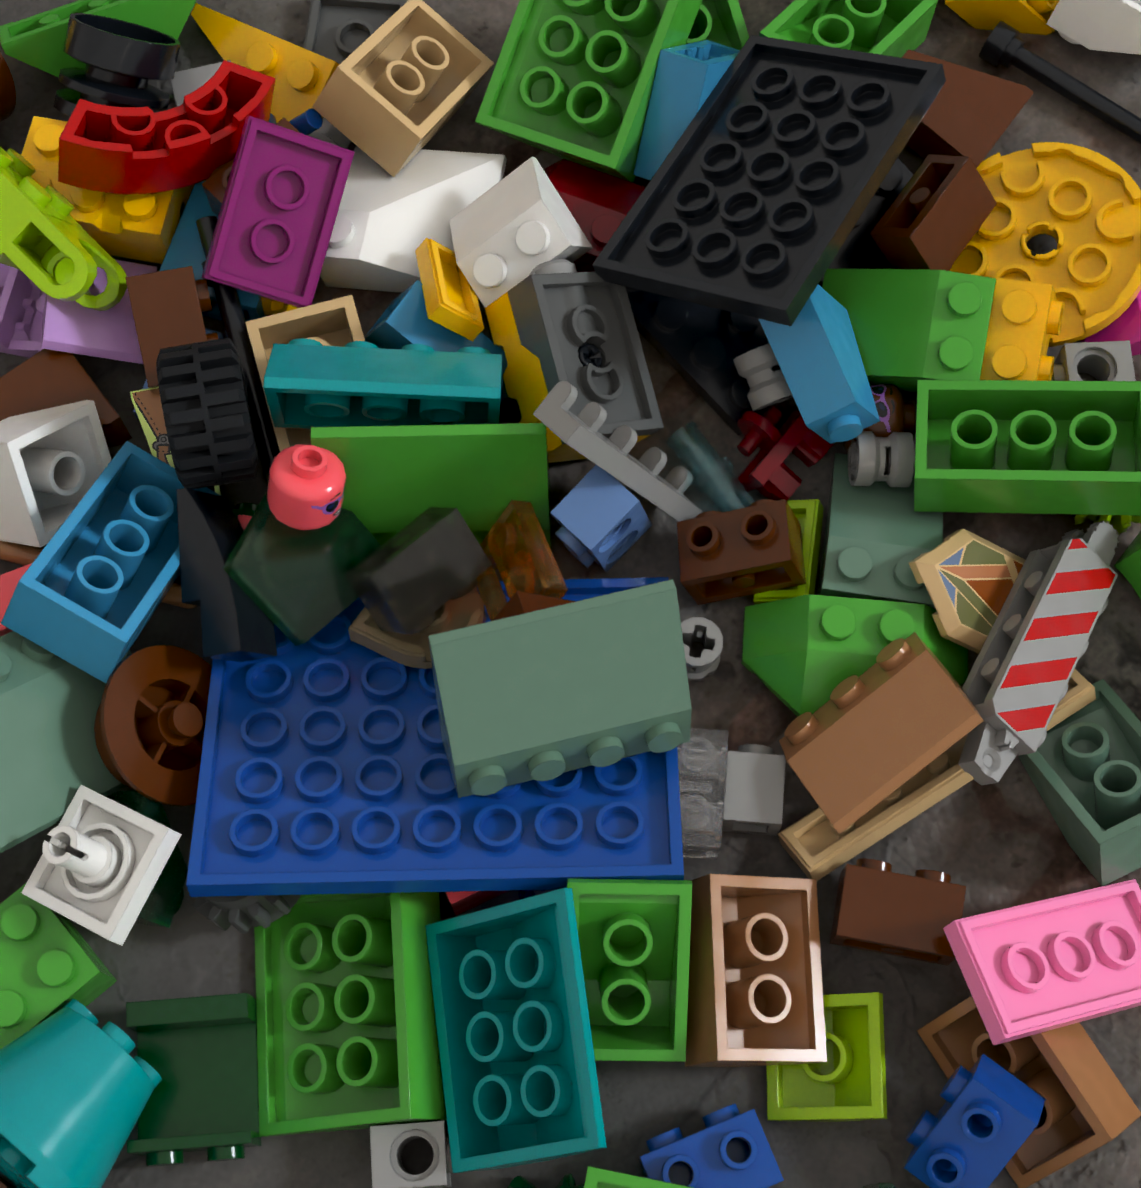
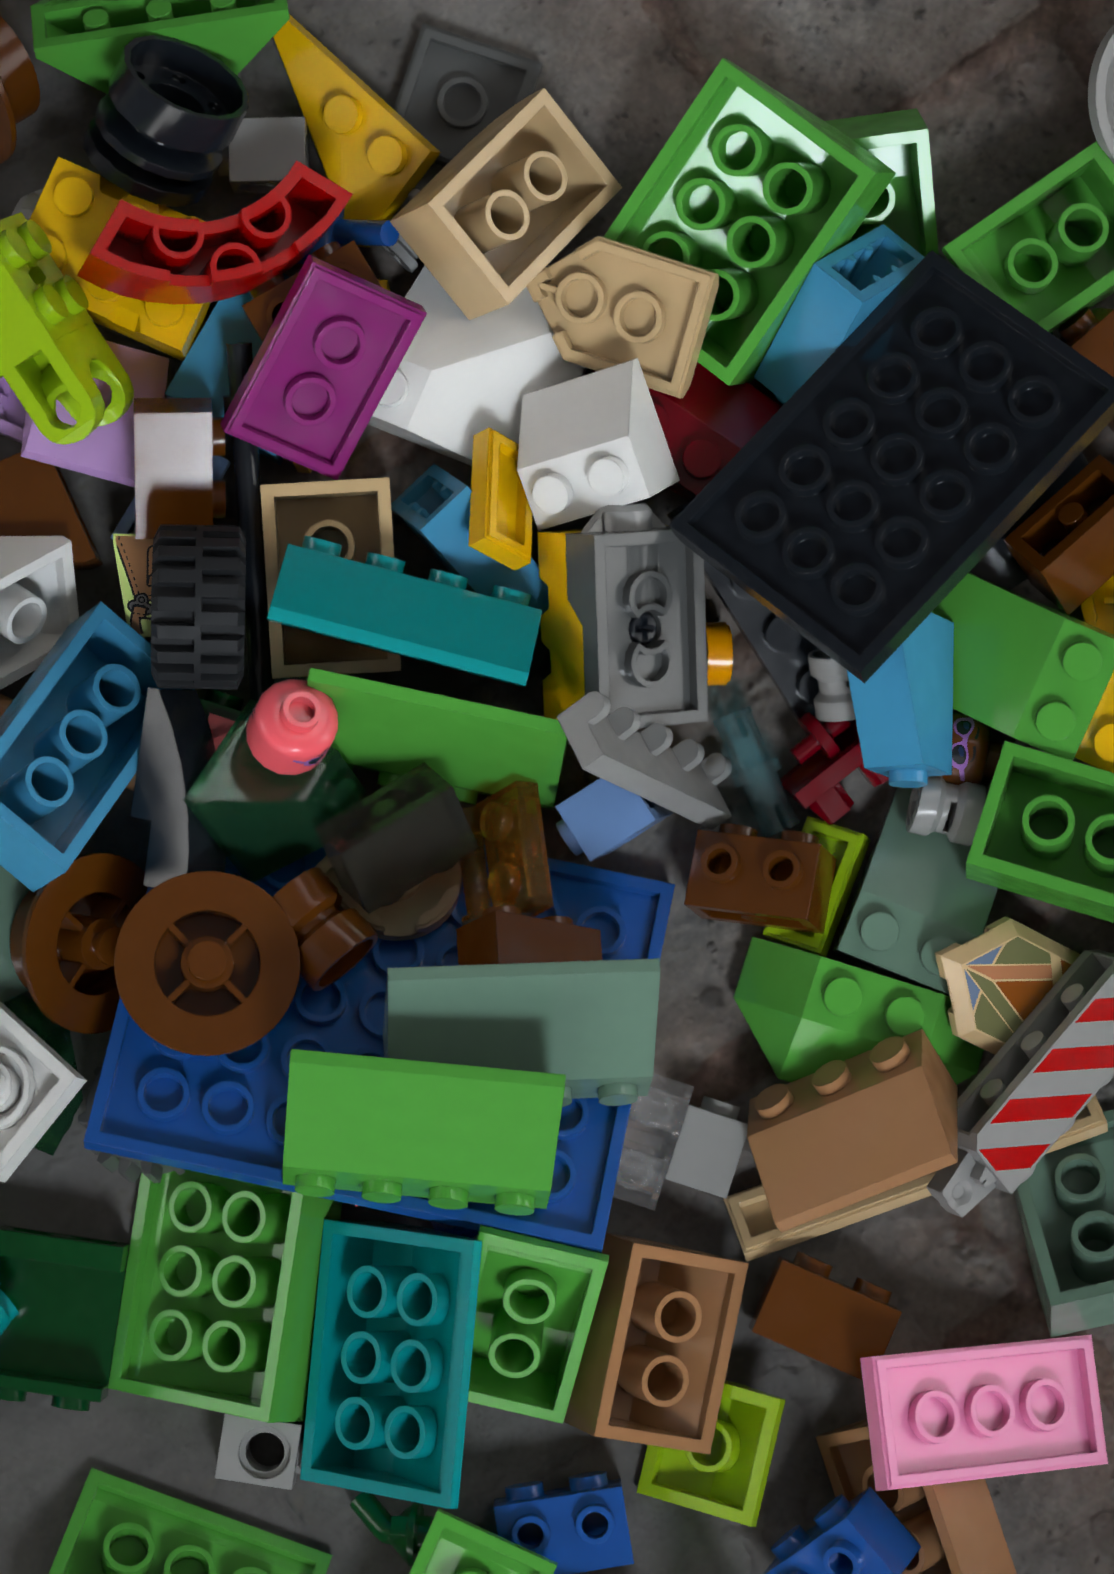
camera: 10 degrees right, 15 degrees up
(269, 702) = (207, 963): none -> reddish brown wheel
(369, 664) = (327, 937): none -> reddish brown wheel
(491, 785) = (421, 1131): none -> bright green slope
(518, 121) = (625, 305): none -> tan tile
(662, 387) = (719, 653): none -> light orange tile
(712, 648) = (703, 968): light grey bush -> none

